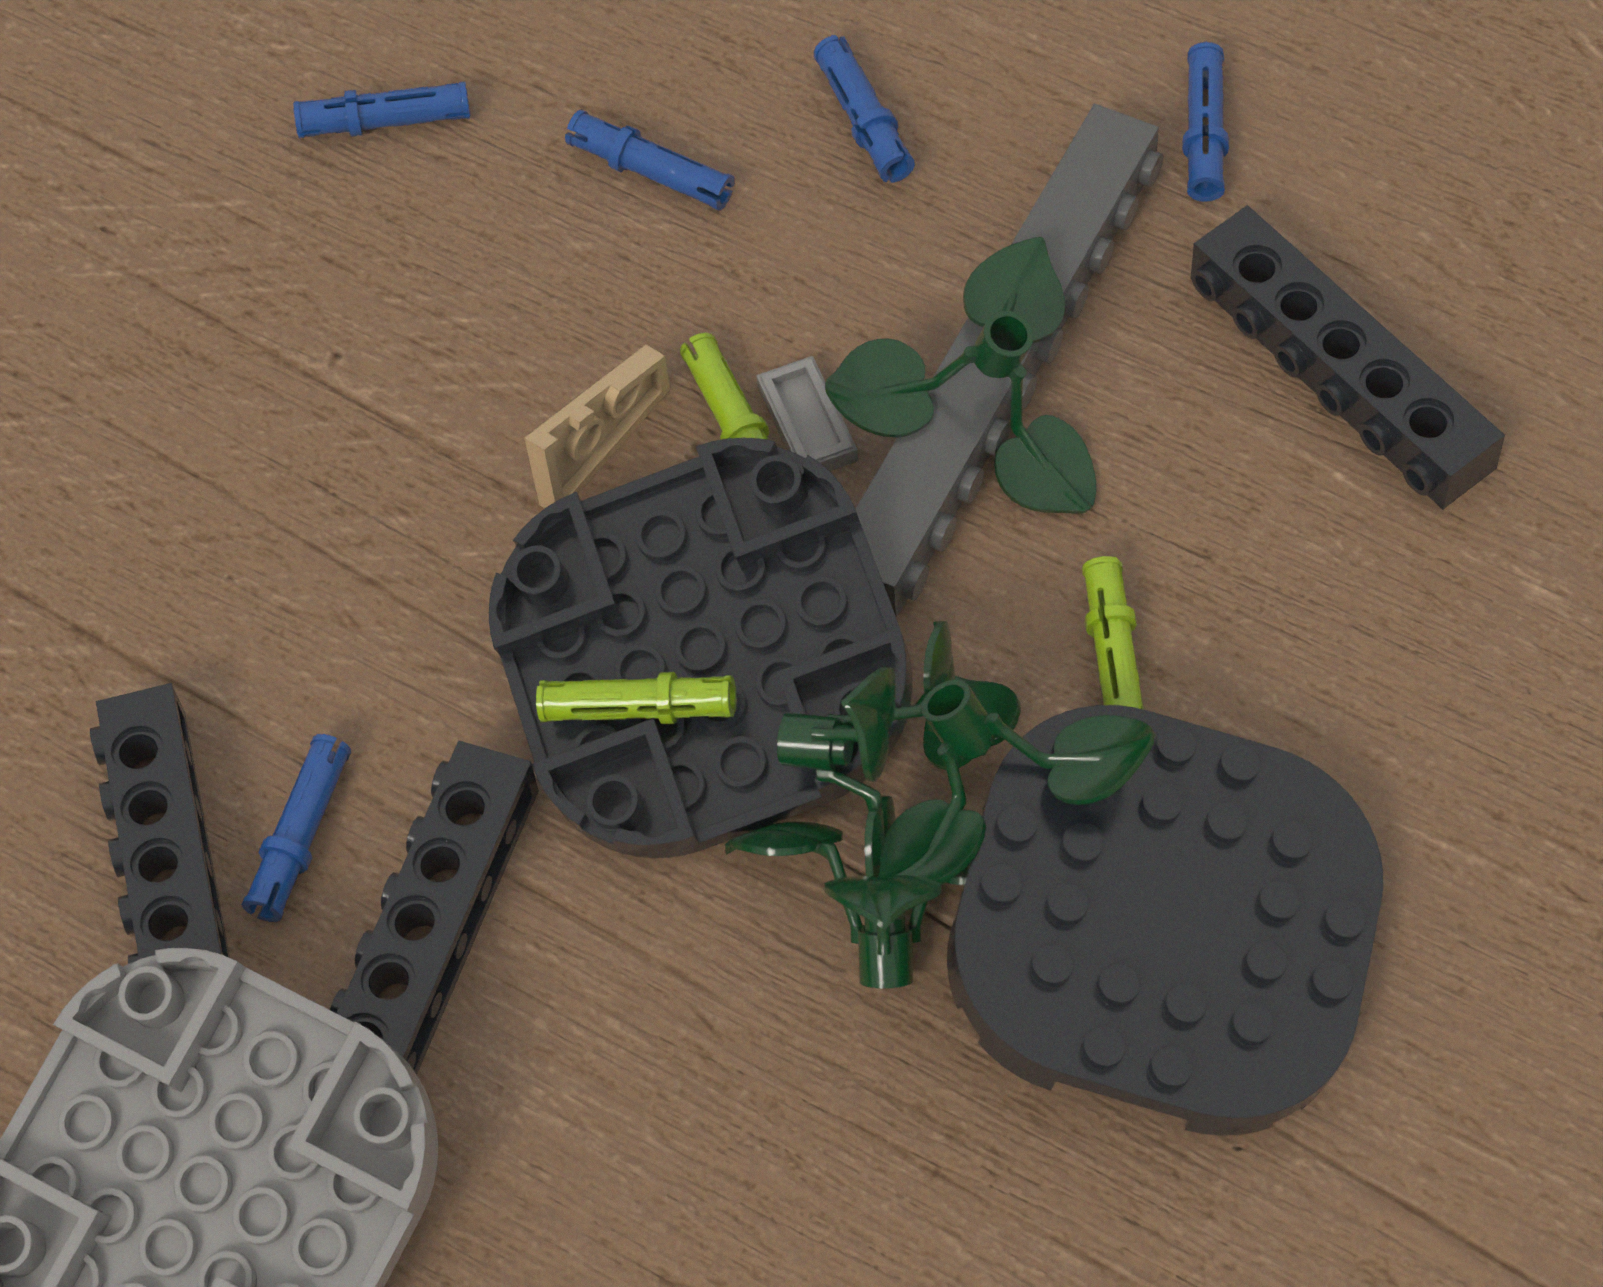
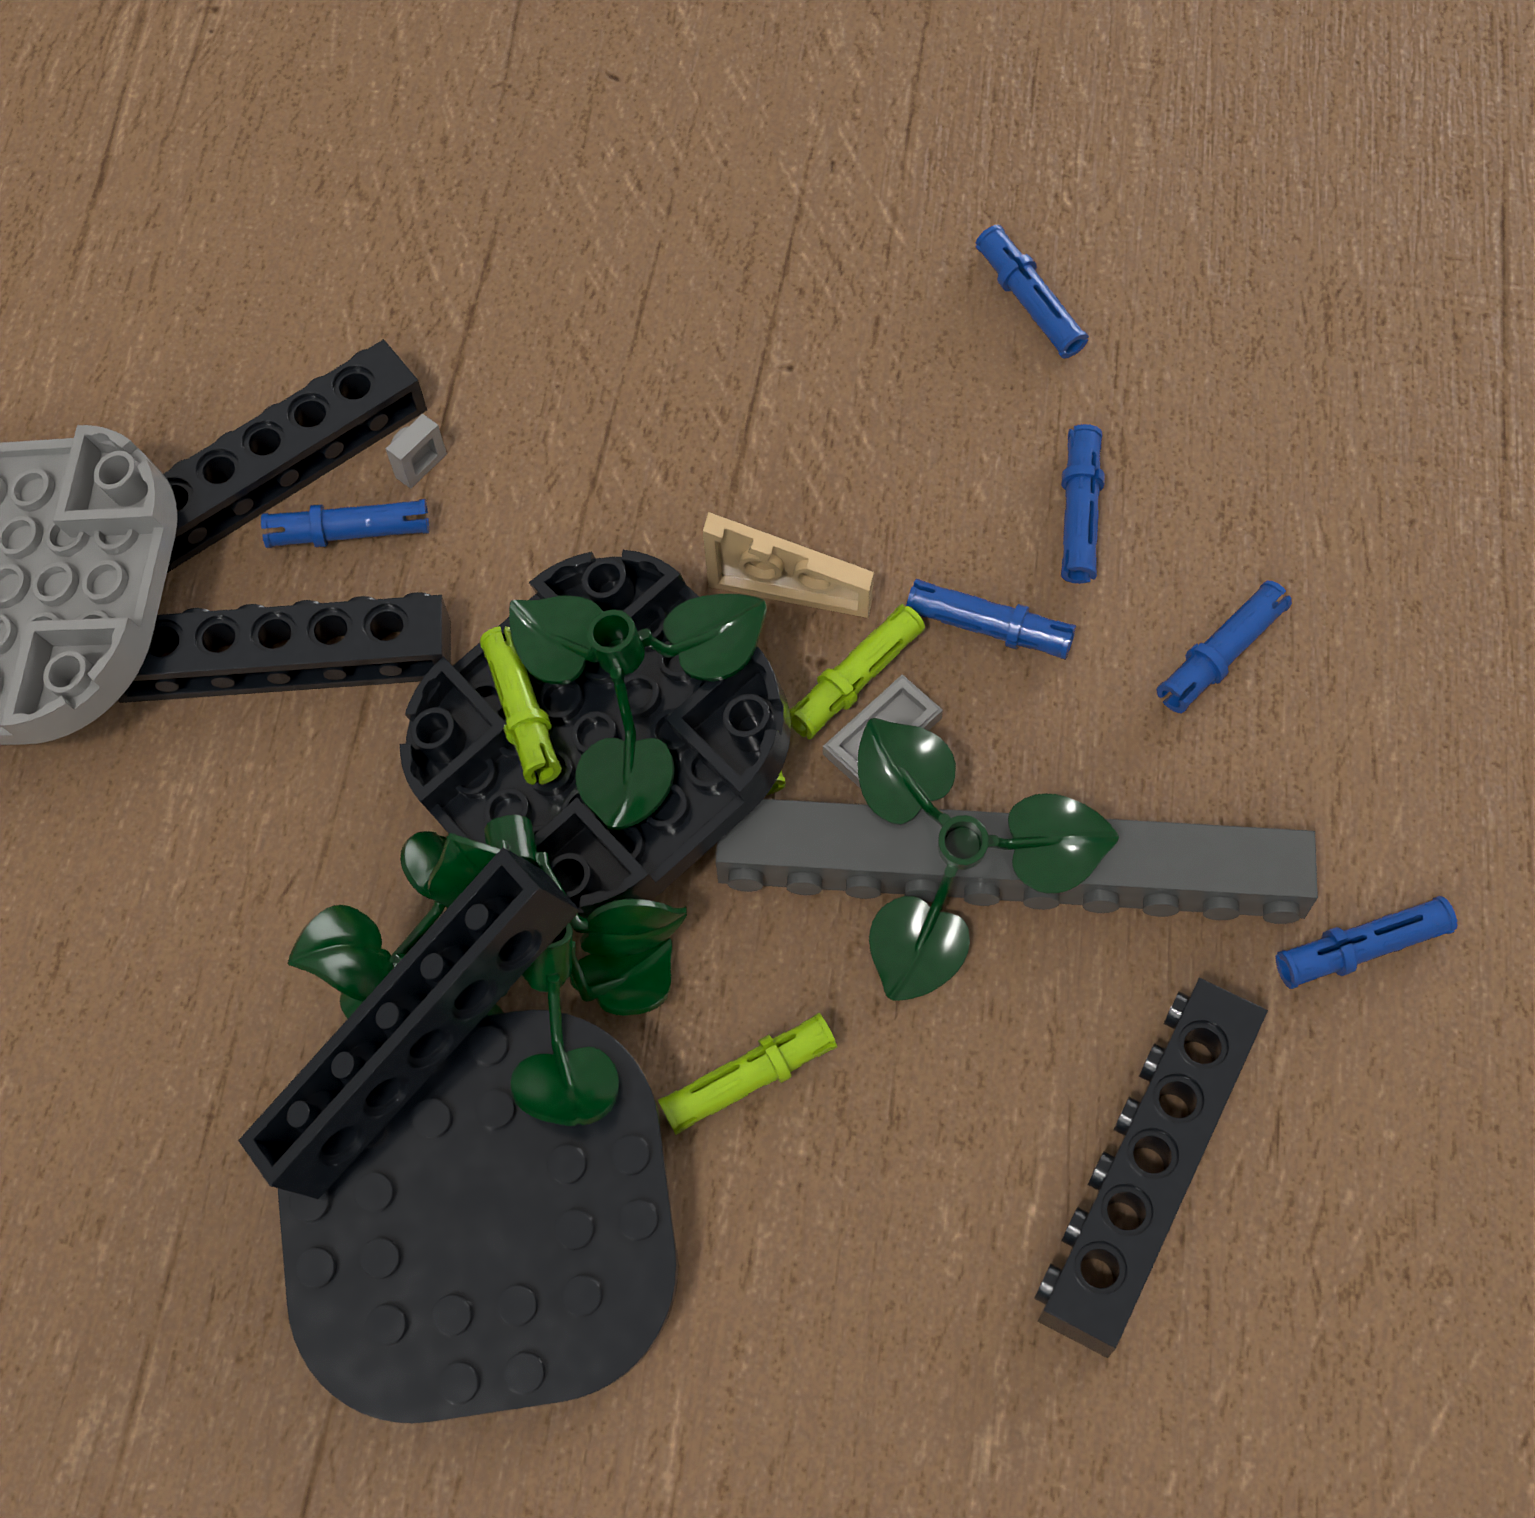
camera: 65 degrees right, 5 degrees up
(244, 727) = (416, 450): none -> light grey plate
(668, 479) = (560, 633): none -> dark green plant
(752, 265) = (999, 621): none -> blue pin
(996, 842) = (408, 1026): none -> black brick

